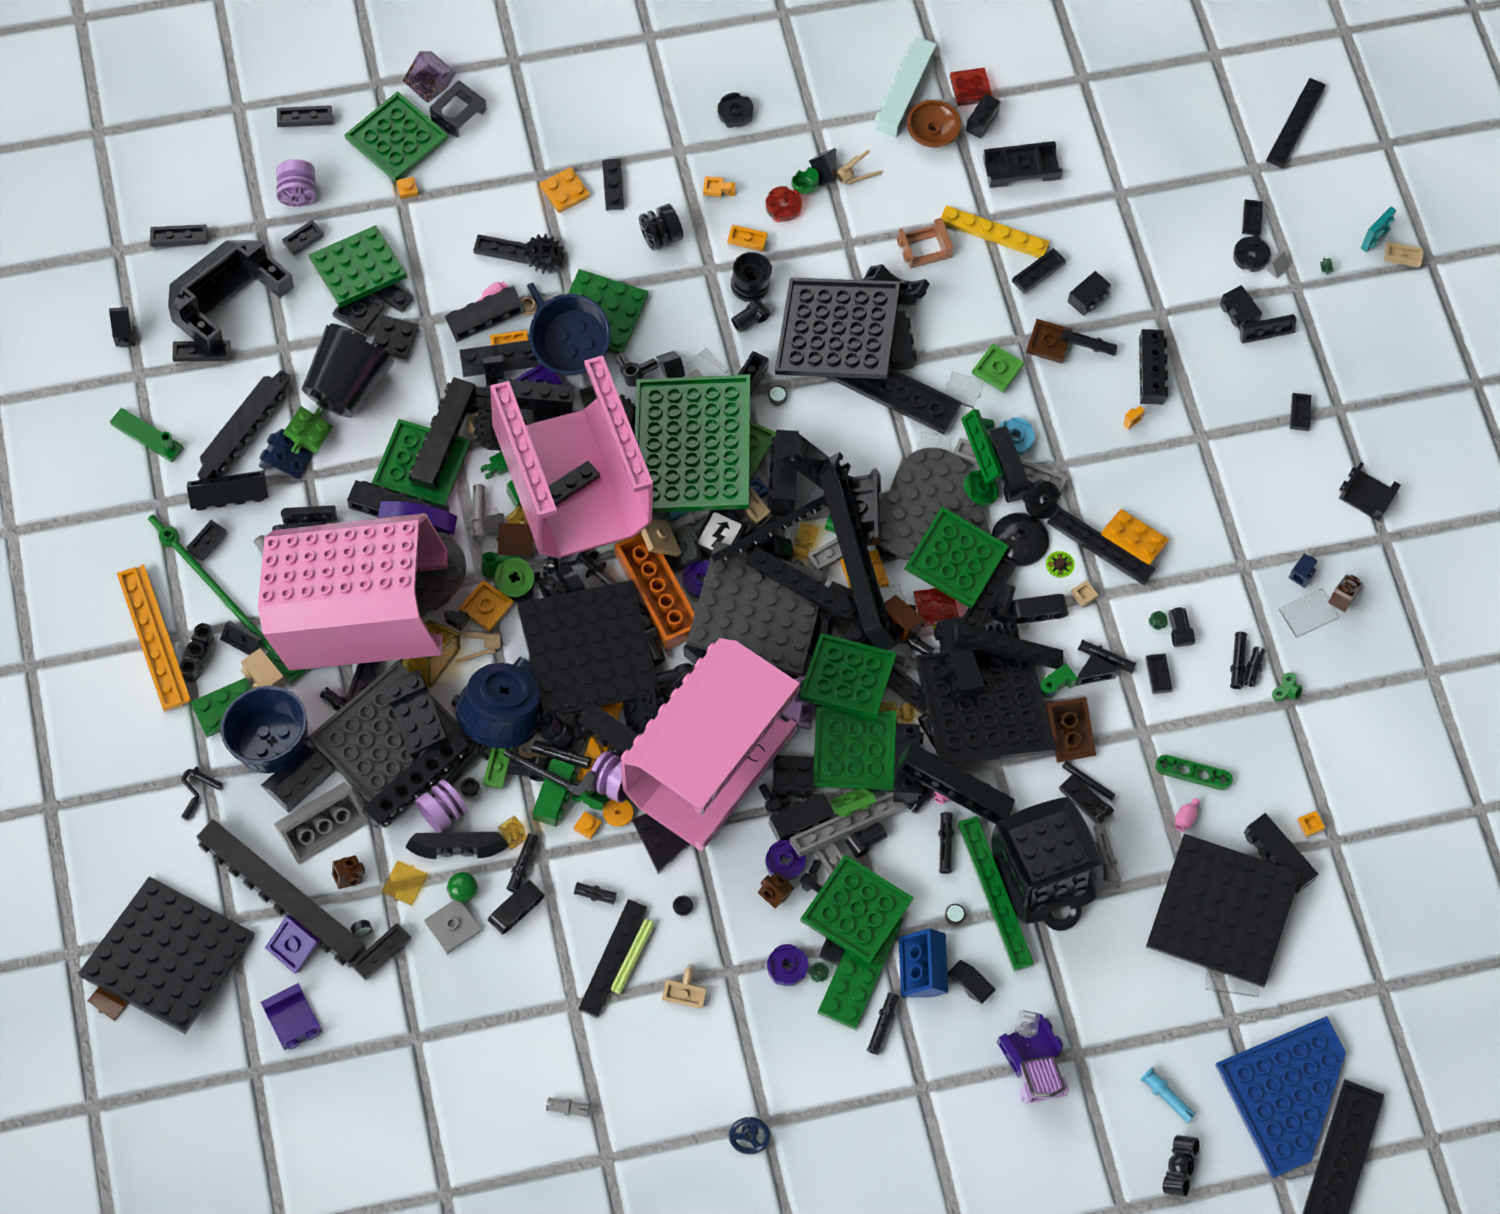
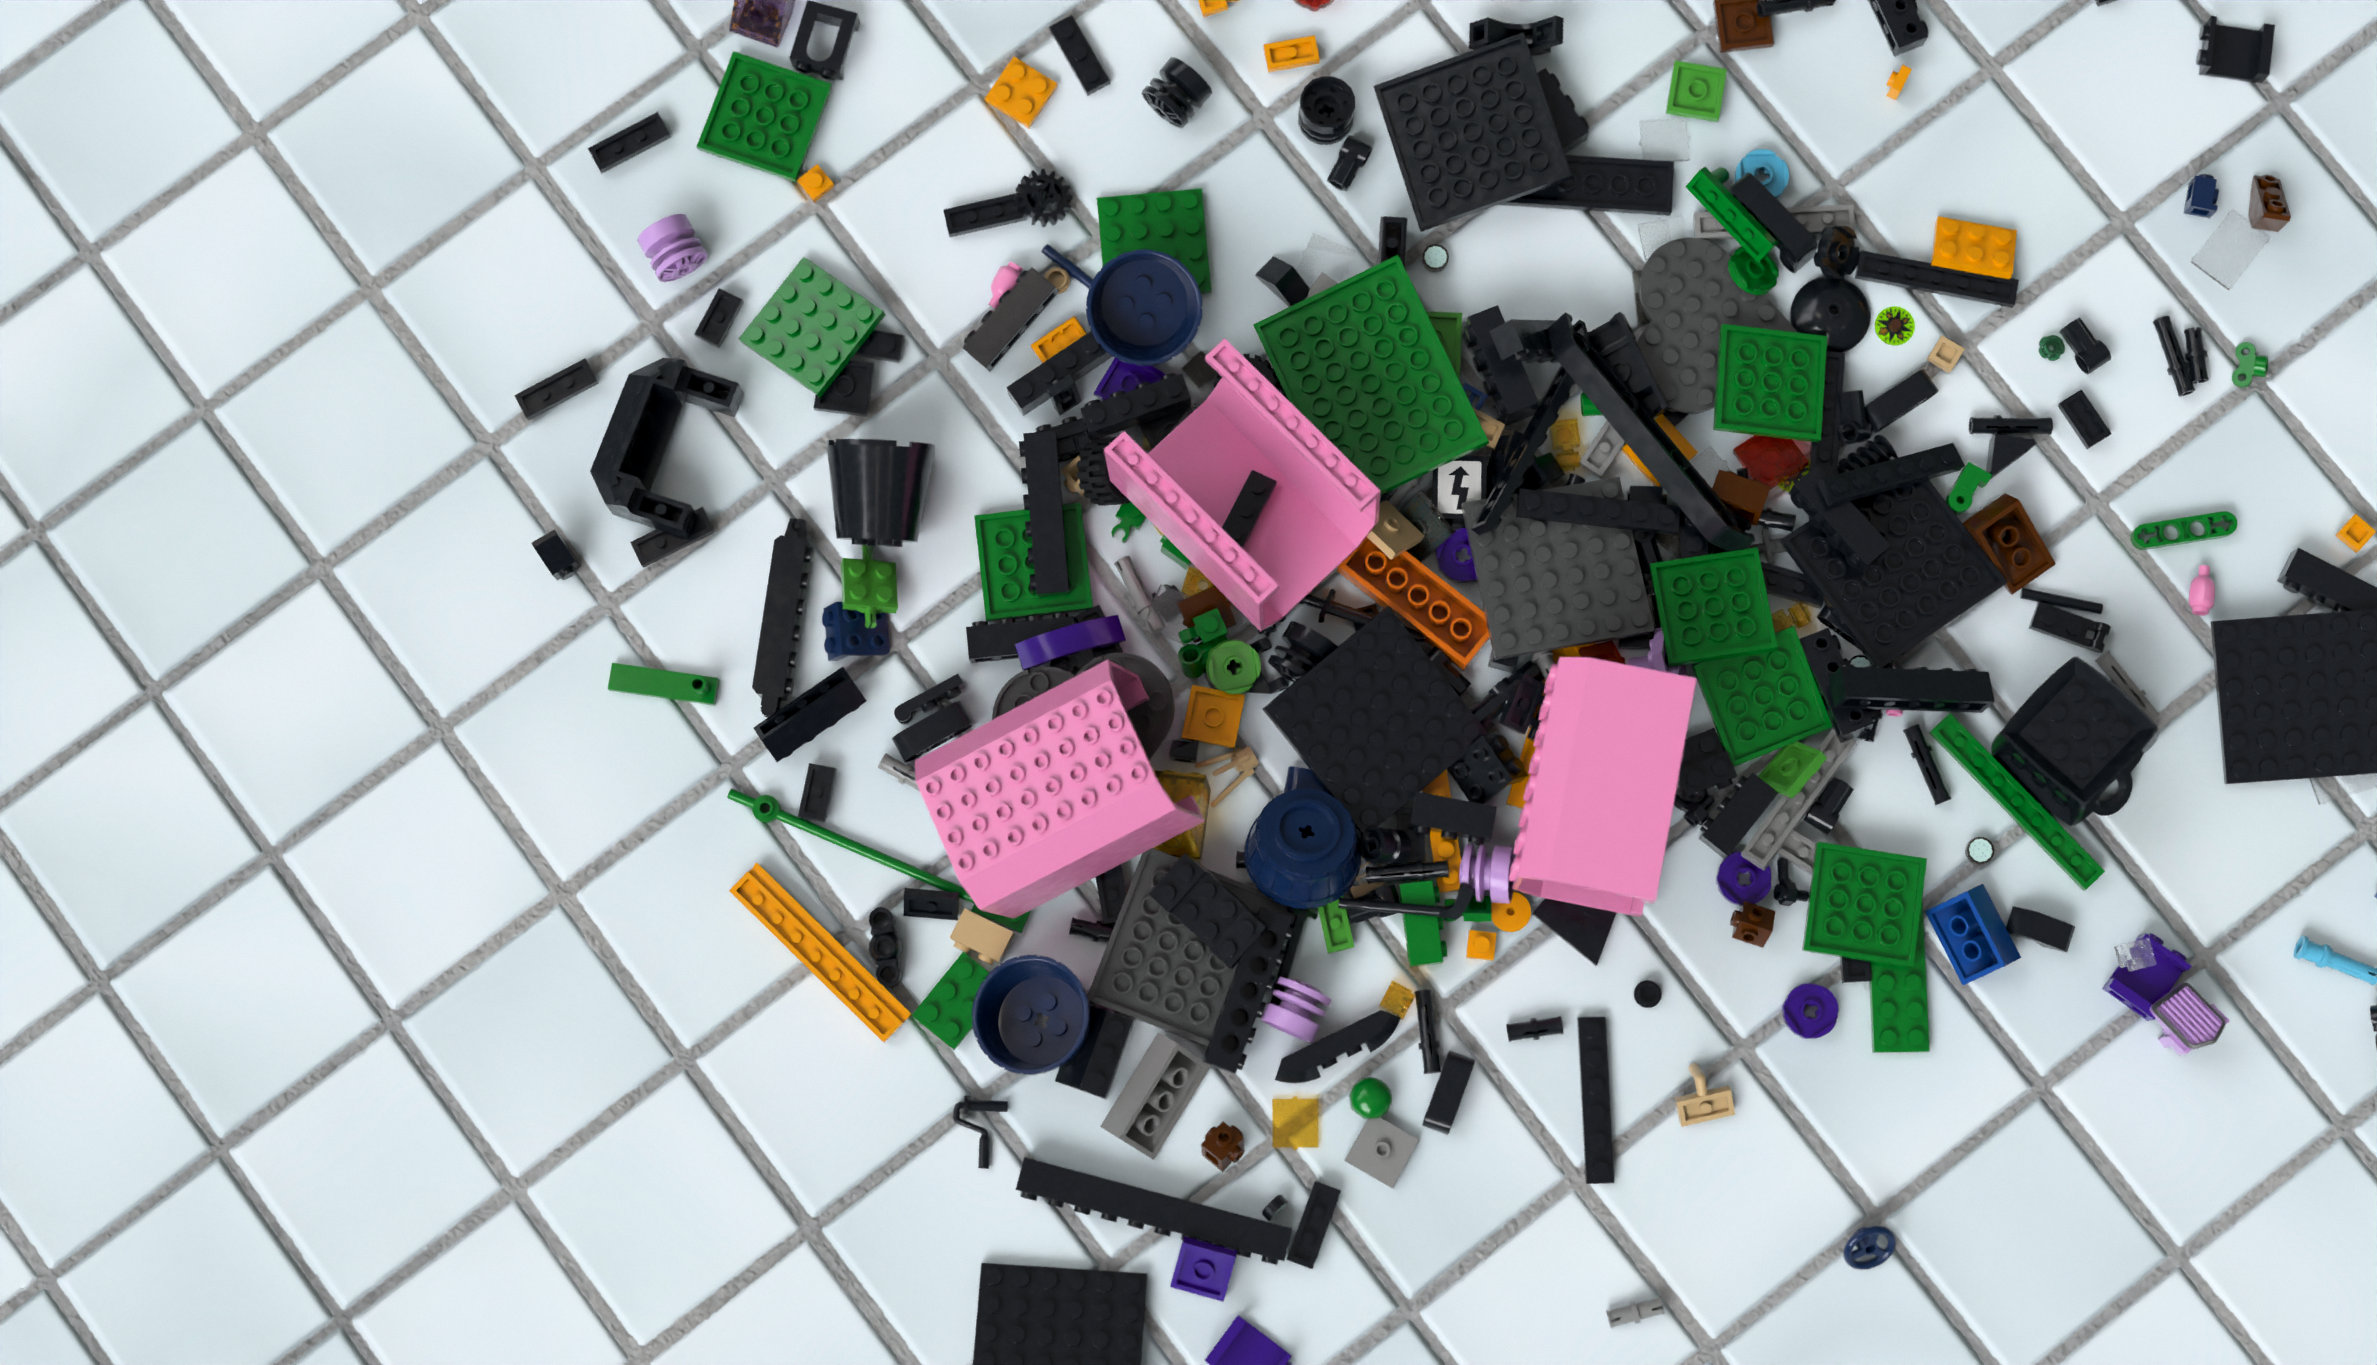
camera: 15 degrees left, 15 degrees up
(396, 336) = (909, 402): black plate -> none
(469, 782) = (1318, 958): black plate -> none
(510, 546) = (1207, 627): none -> green plate
(632, 957) = (1618, 1087): yellowish green axle -> none
(636, 370) = (1231, 307): black axle -> none
(819, 967) = (1857, 996): clear green plate -> none
(891, 1001) = (1959, 1030): black pin -> none

